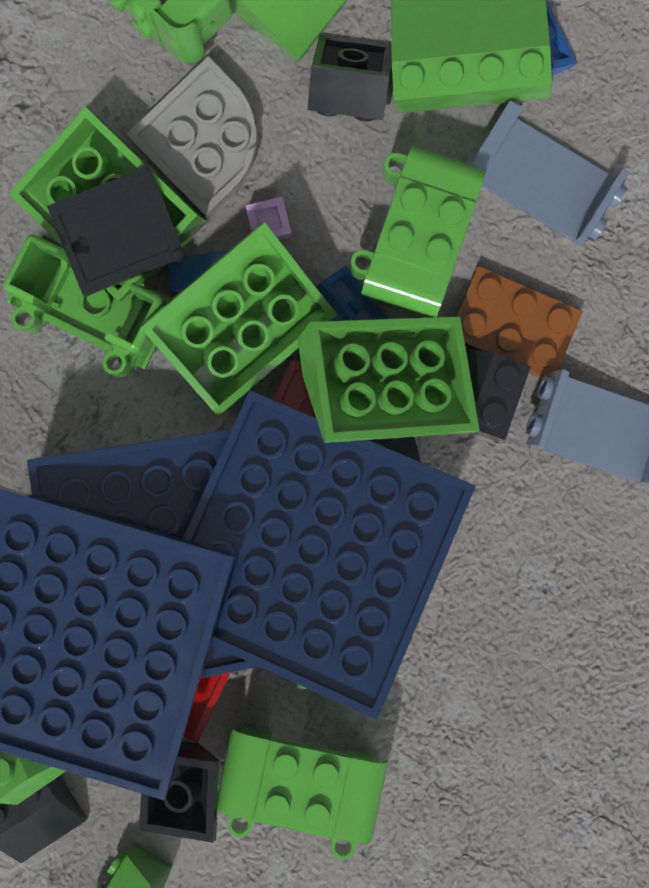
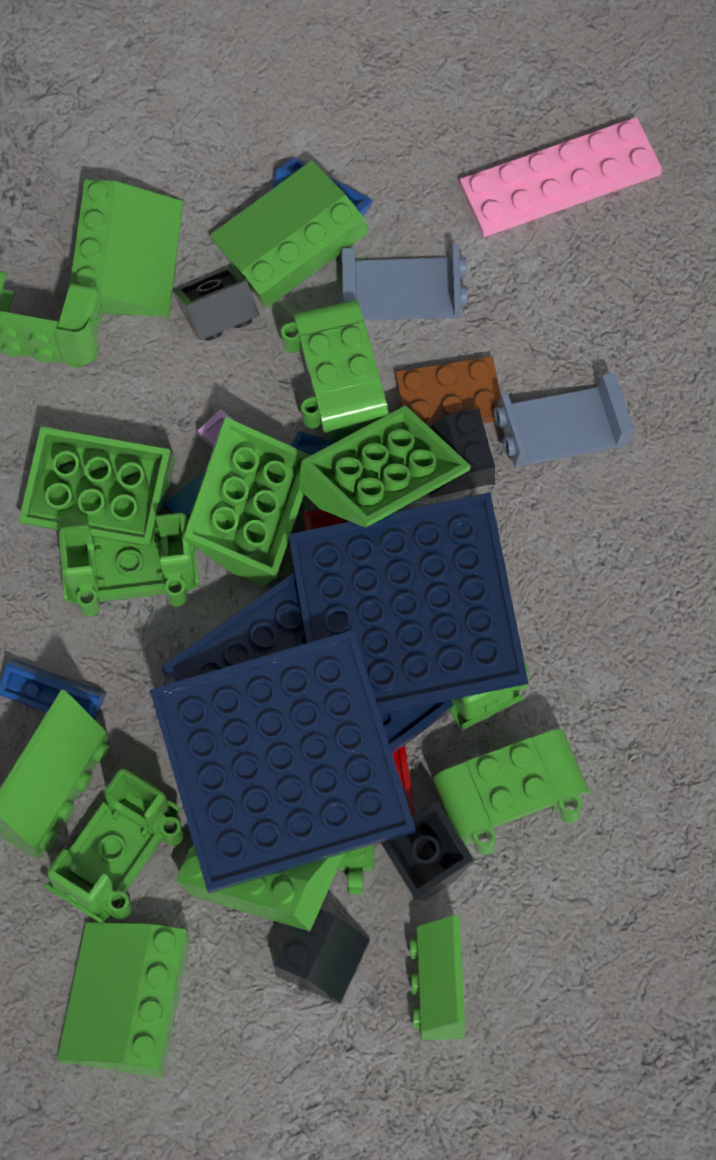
camera: 30 degrees left, 20 degrees down
(124, 231) = (123, 489): black container -> none
(201, 137) = (133, 402): light grey plate -> none

